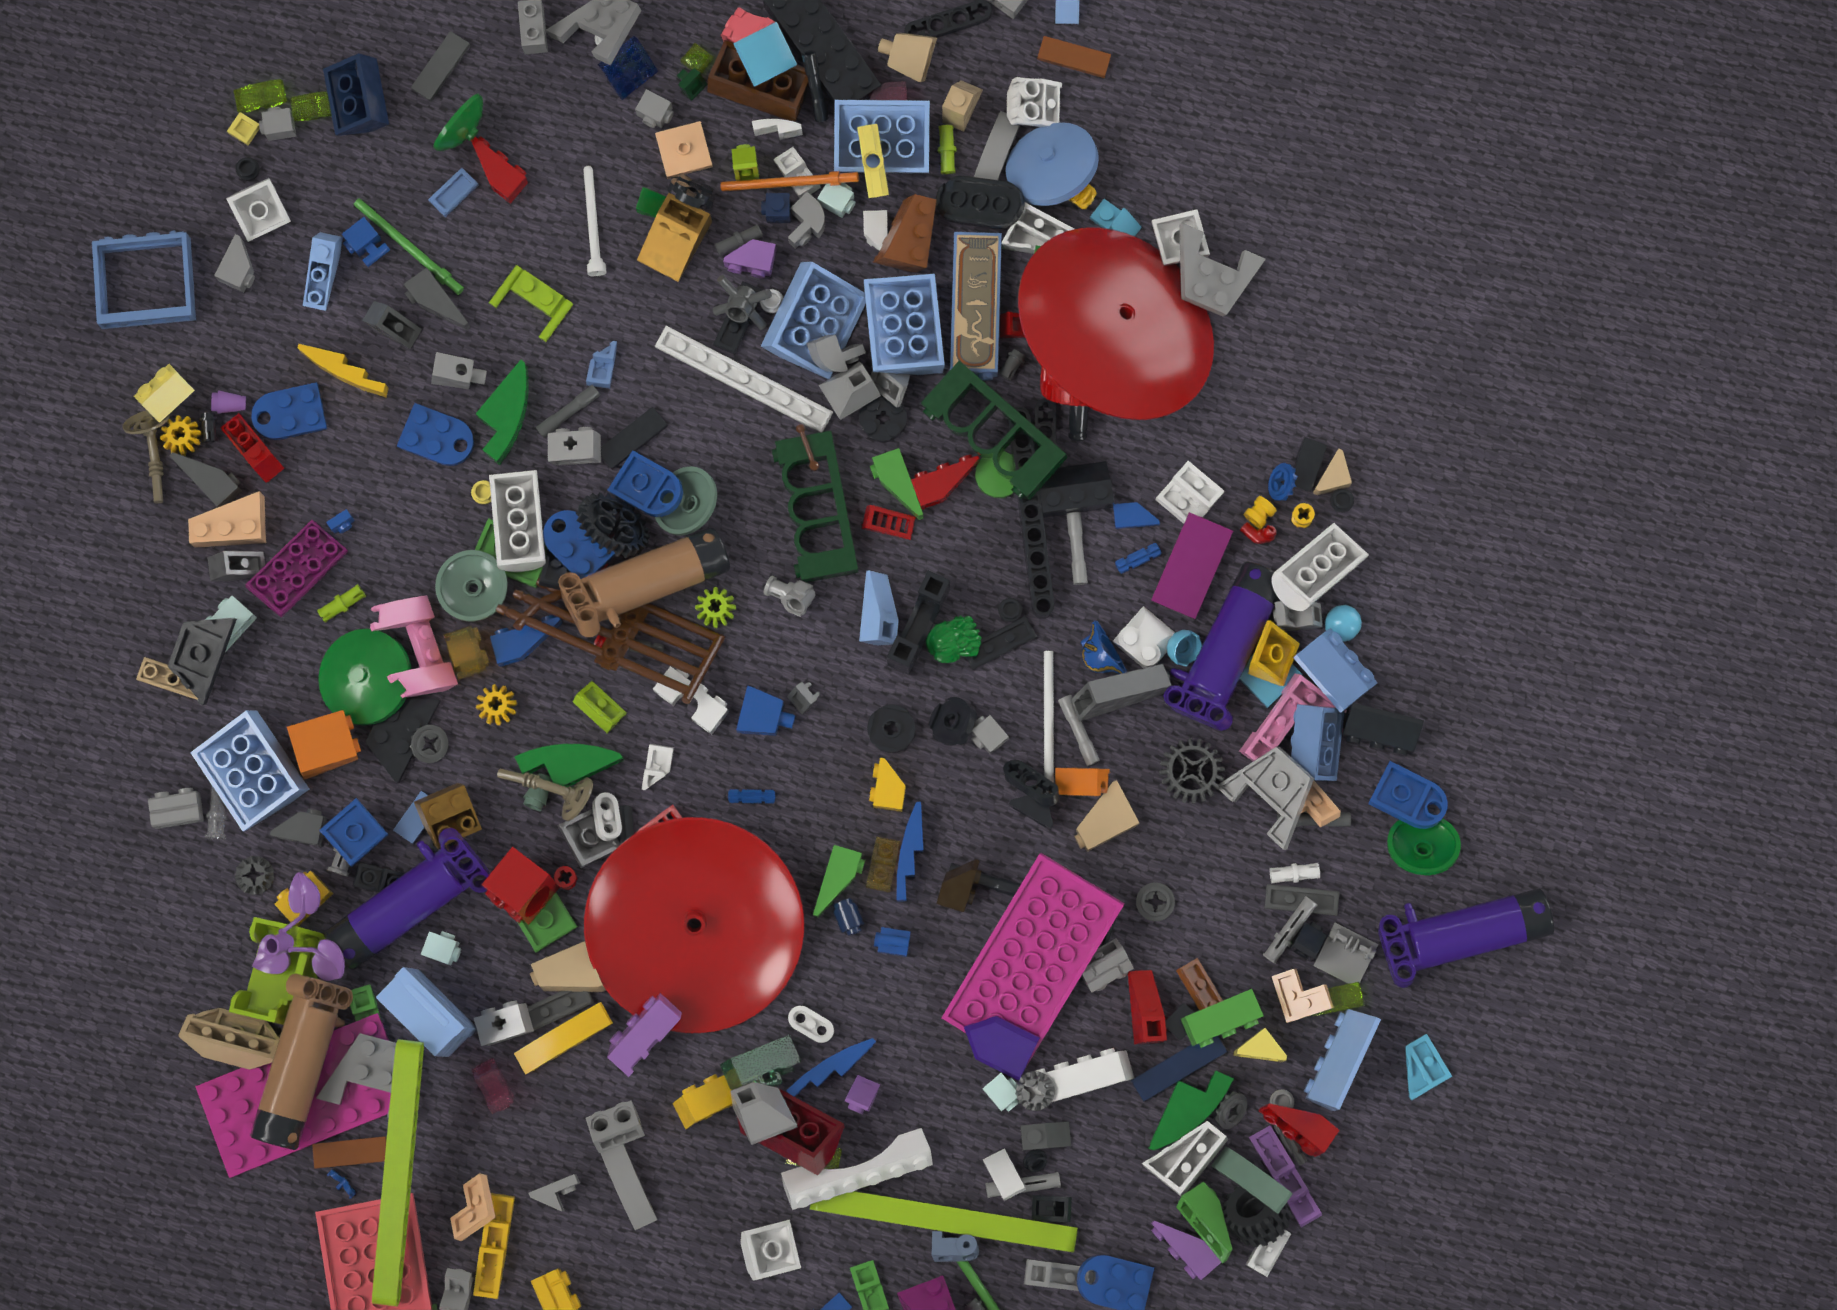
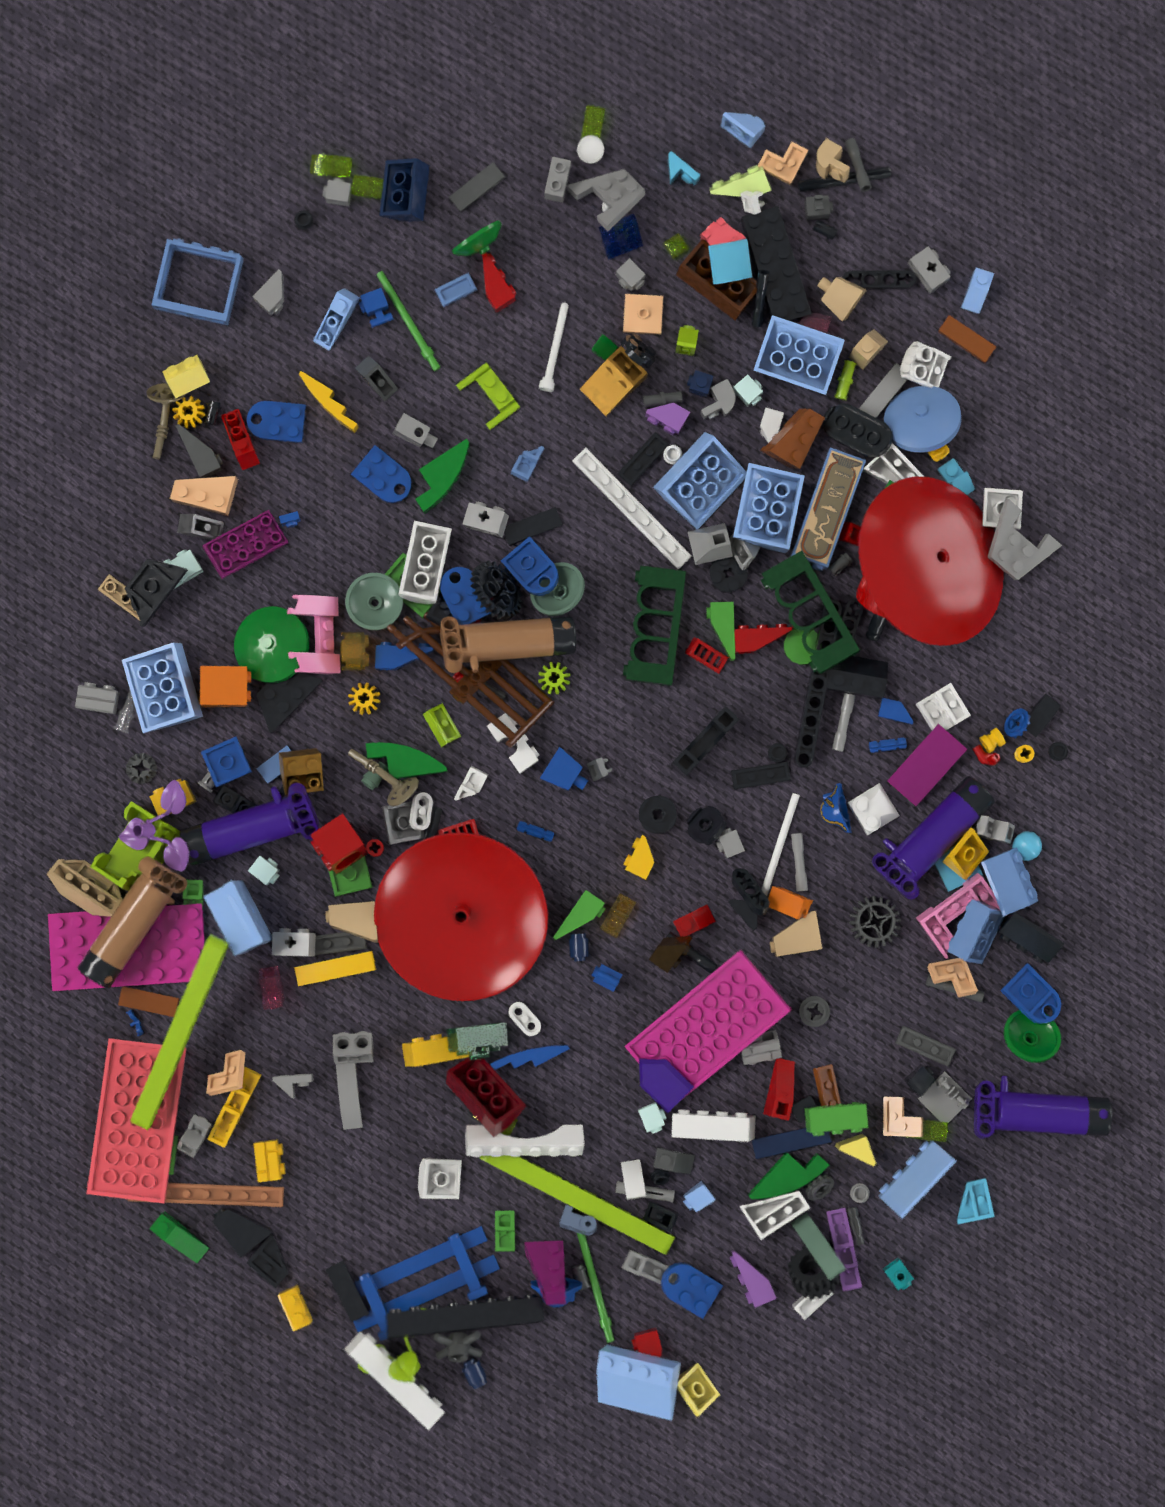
camera: 10 degrees right, 5 degrees up
(227, 402) = (232, 398): medium lavender cone -> none
(243, 128) = (310, 187): light yellow plate -> none
(258, 209) = (302, 254): white slope -> none
(302, 828) = (188, 745): dark grey slope -> none
(341, 603) = (271, 581): lime pin -> none
(365, 1063) = (182, 939): light grey wing -> none
(432, 298) = (413, 367): dark grey slope -> none
(439, 744) = (311, 715): dark grey gear -> none
(481, 492) = (404, 531): light yellow plate -> none
(555, 420) = (478, 493): dark grey piece -> none
(643, 1033) = (396, 985): medium lavender wedge -> none
(691, 83) = (665, 264): dark green tile -> none
(741, 303) = (649, 449): dark grey bar -> none
(761, 1111) = (467, 1076): light grey slope -> none
(785, 128) = (726, 322): white slope -> none
(793, 165) = (724, 360): white slope -> none
(794, 596) = (616, 689): light grey connector -> none
(814, 466) = (664, 594): reddish brown hinge -> none
(828, 355) = (703, 512): light grey brick -> none
(833, 178) = (750, 375): orange bar -> none
(862, 1095) = (546, 1086): medium lavender slope -> none
(869, 145) = (784, 385): light yellow piece -> none
(879, 613) = (677, 722): light blue slope -> none
(911, 844) = (645, 906): blue slope -> none
(954, 639) = (727, 762): green hair -> none
(976, 840) = (694, 921): none -> red slope
(1045, 1086) = (686, 1125): dark grey gear -> none
(1089, 1169) = (698, 1197): none -> light blue slope
(1120, 691) = (840, 844): dark grey slope -> none
(1183, 647) = (900, 825): medium azure hair -> none
(1205, 1215) = (774, 1259): bright green slope -> none
(1273, 952) = (891, 1080): light grey pin -> none
(1280, 784) = (939, 955): light grey wing -> none
(1294, 873) = (927, 1024): white pin -> none
(1306, 1128) = (871, 1220): red slope -> none
(1317, 568) = (1022, 800): white brick -> none
(1335, 476) = (1059, 731): tan slope -> none
(1360, 1184) = (898, 1274): none -> teal brick

